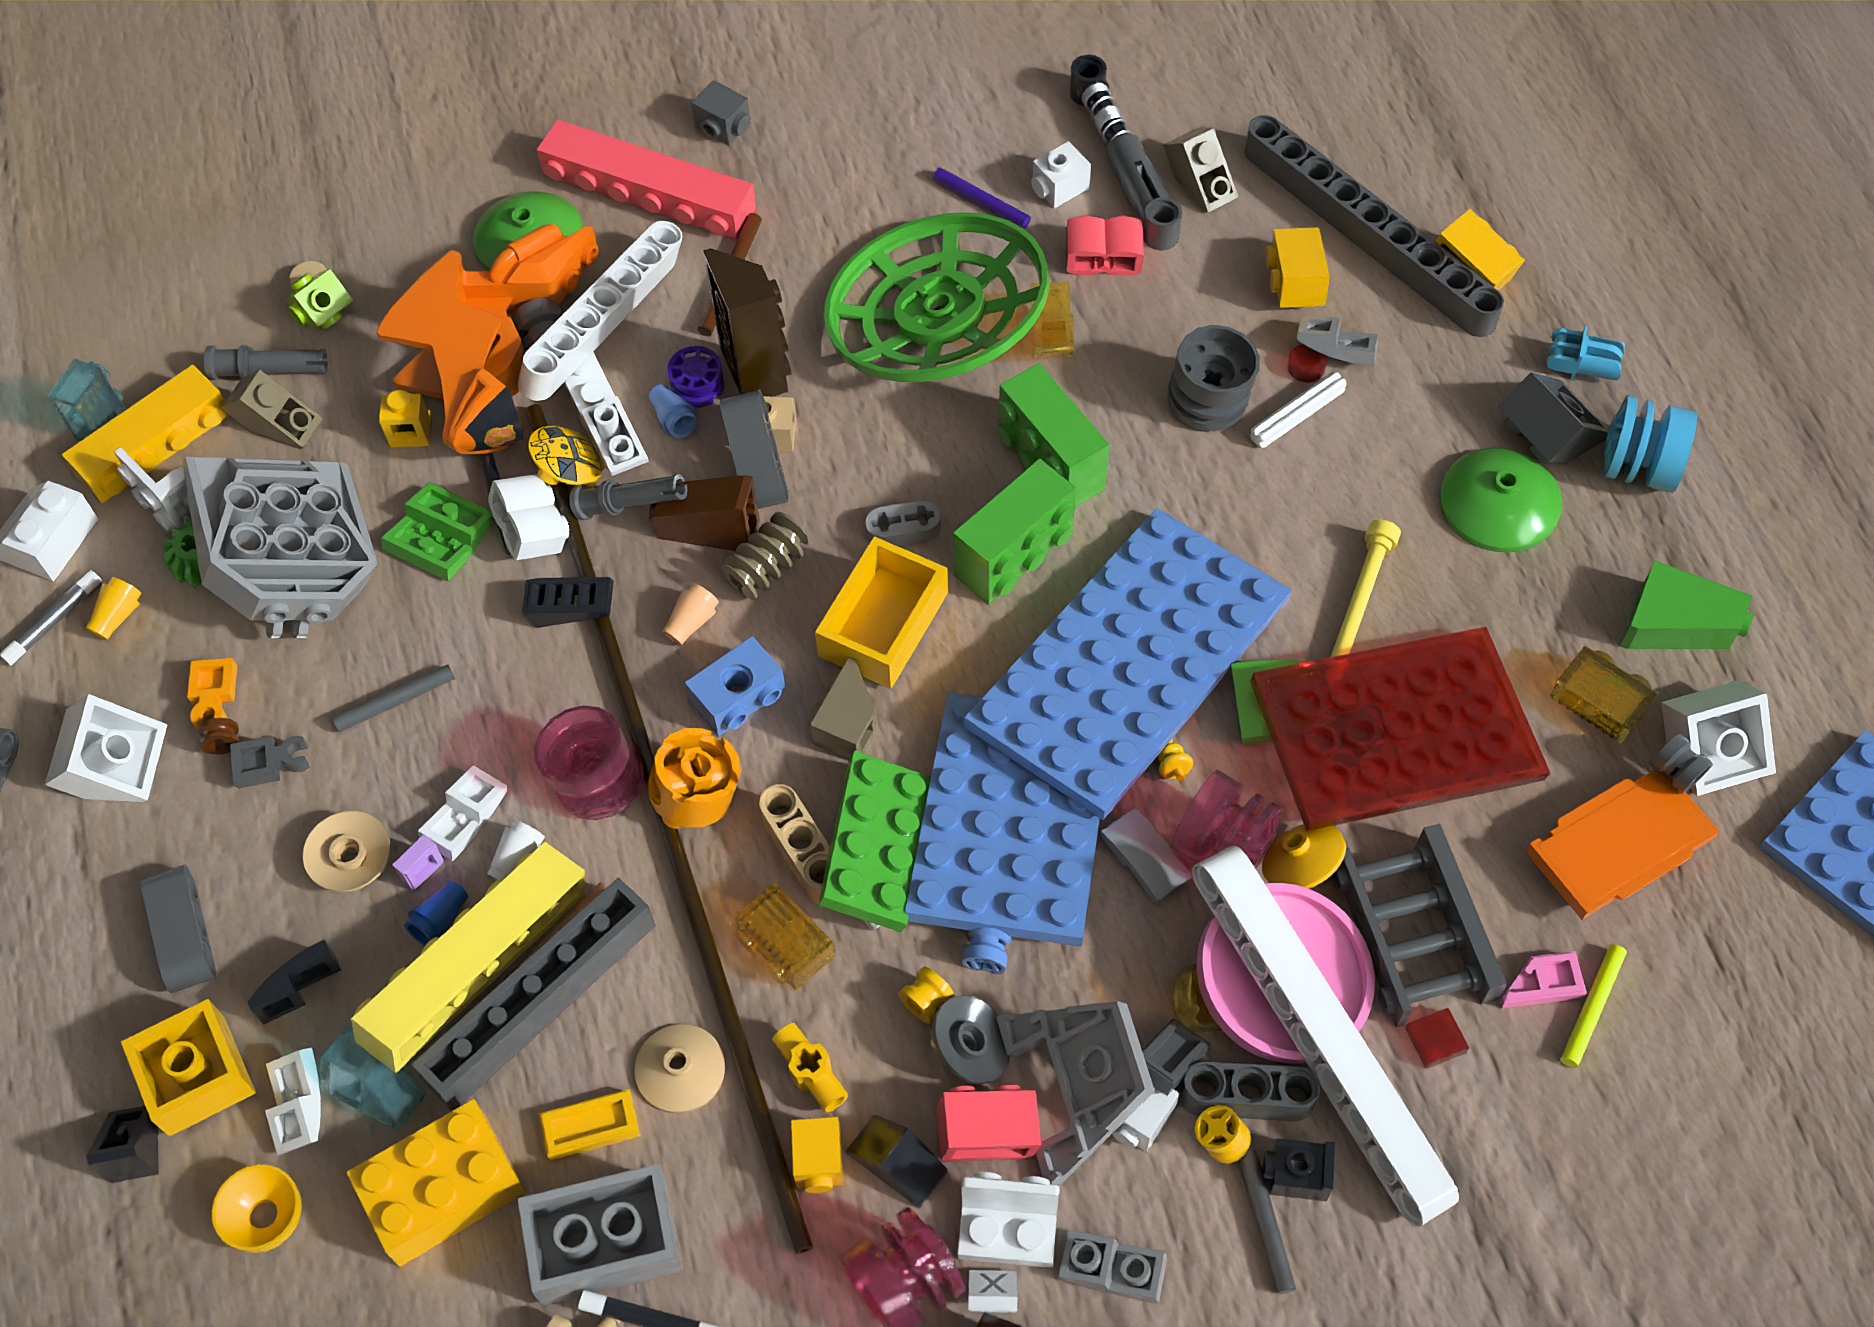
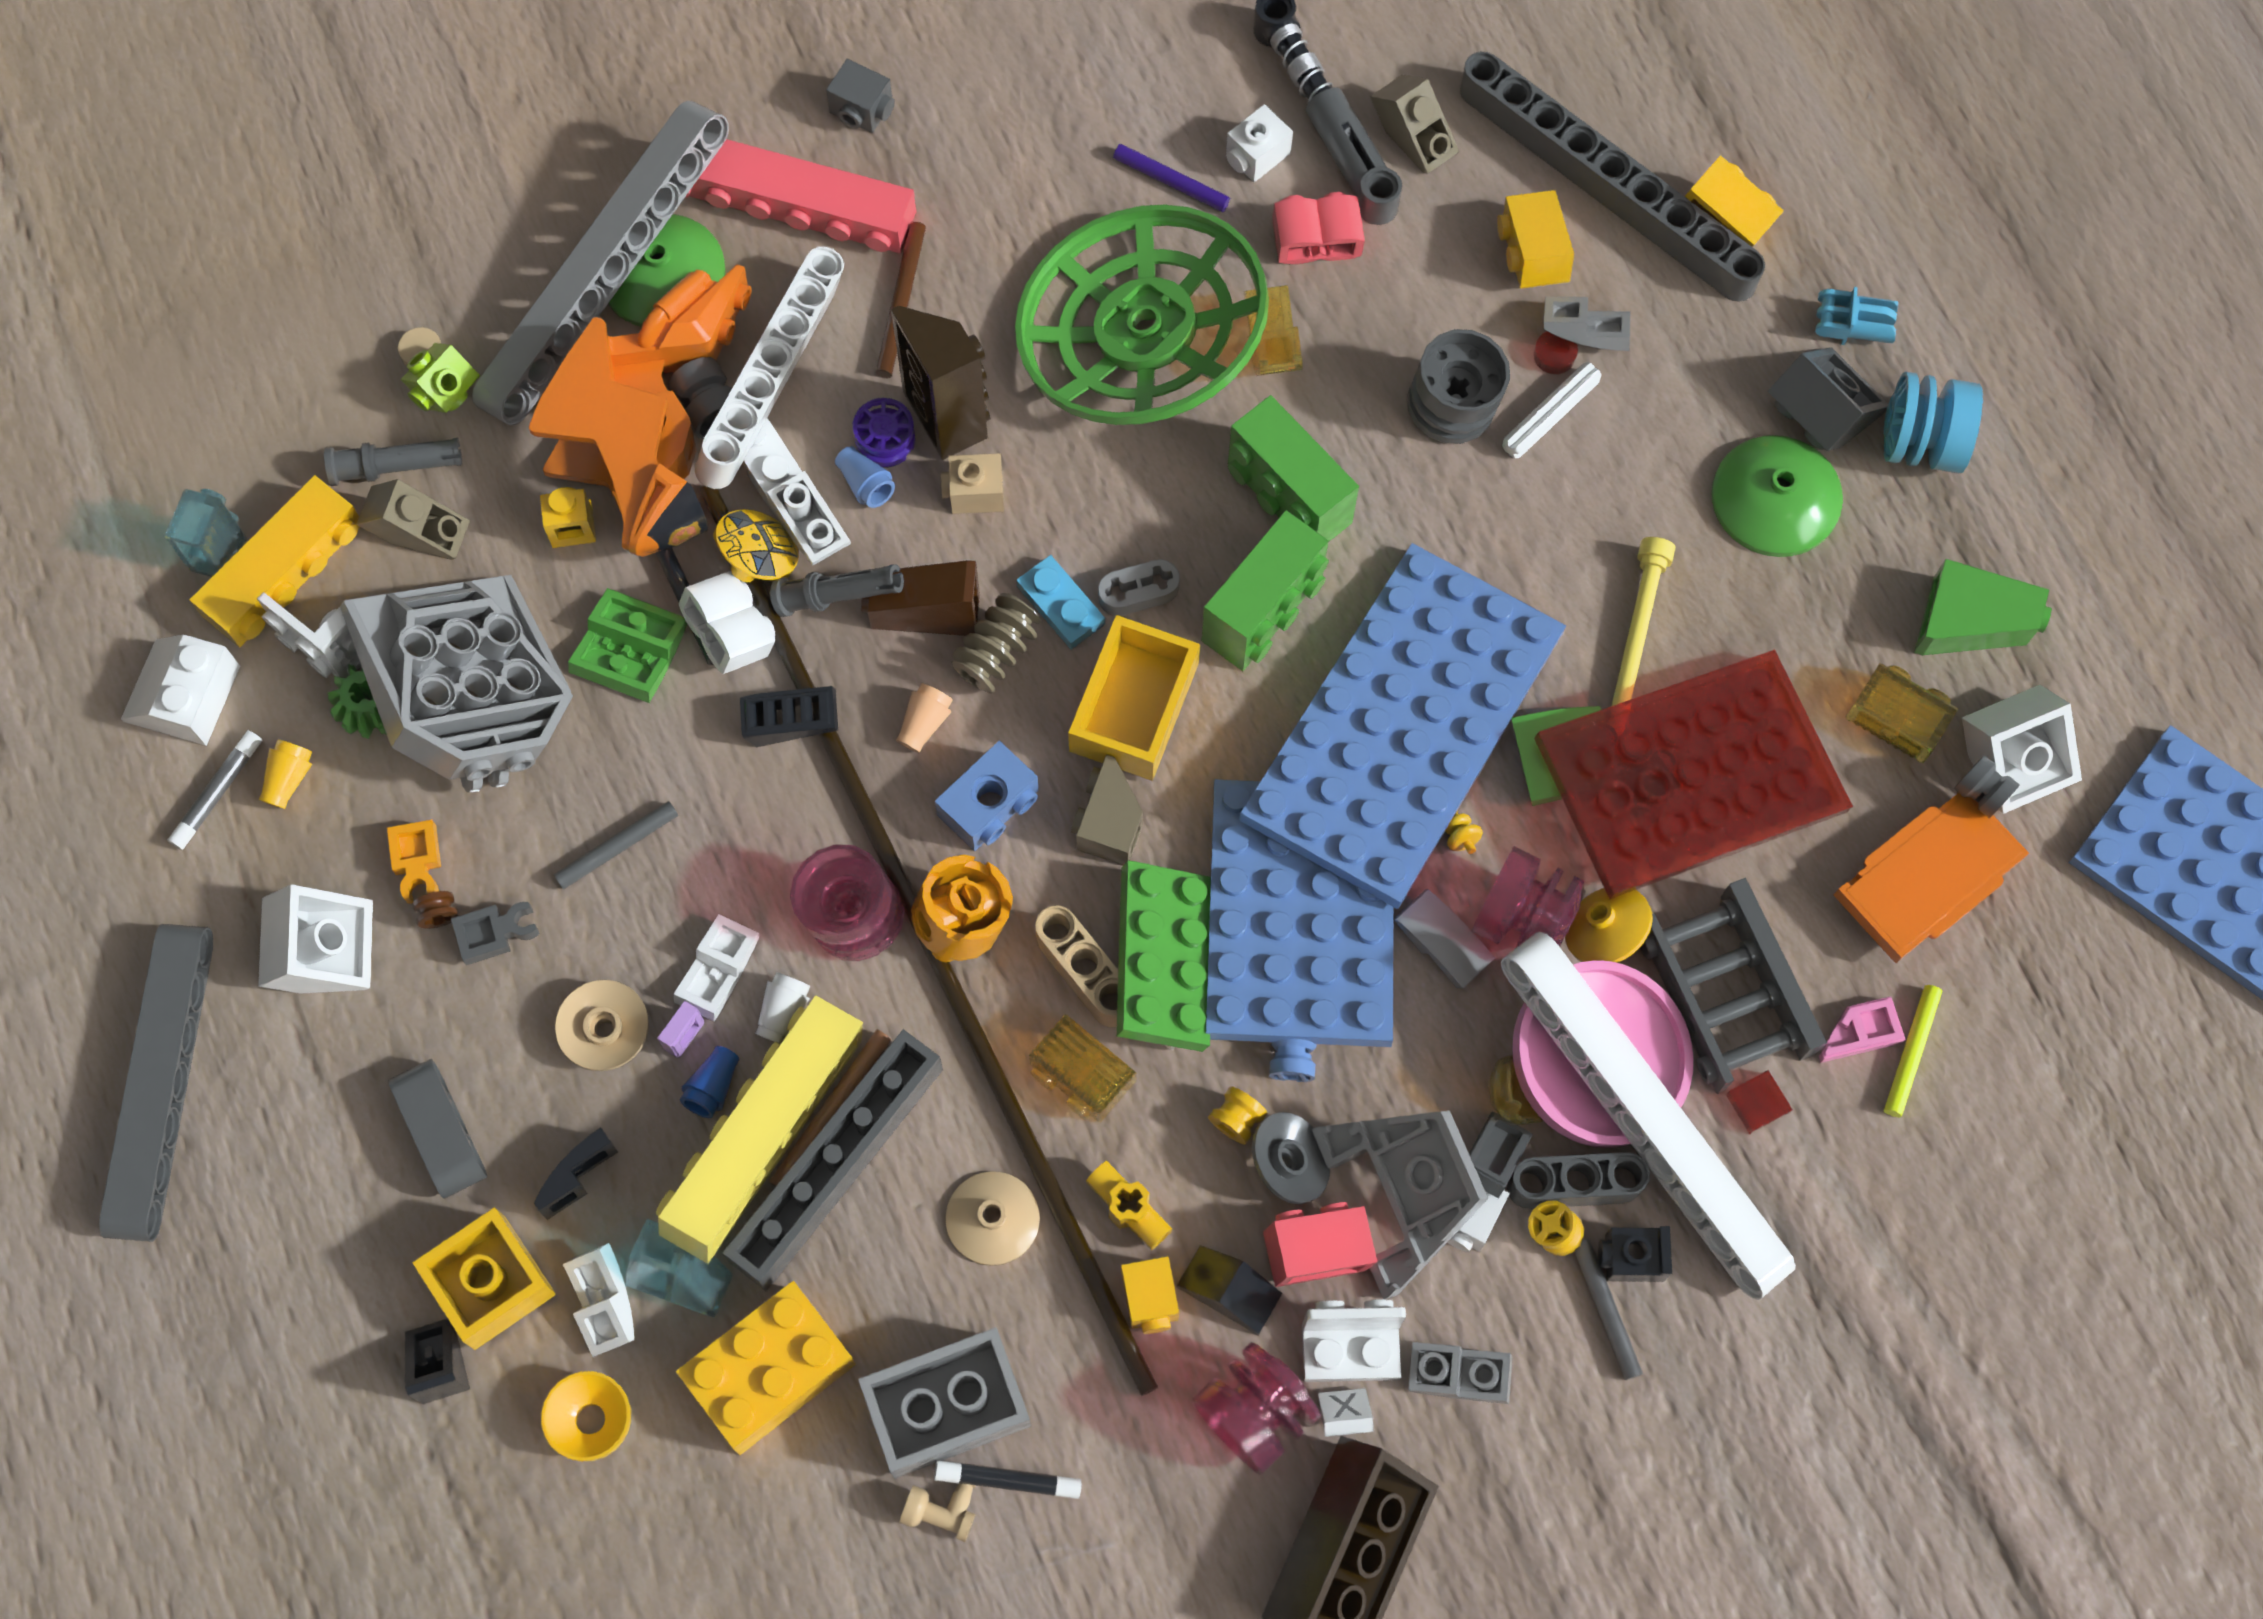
camera: 10 degrees left, 10 degrees up
(479, 207) = (600, 261): none -> light grey beam
(589, 1125) = (910, 1288): yellow tile -> none
(754, 446) = (967, 517): dark grey beam -> none
(830, 530) = (1060, 602): none -> medium azure plate

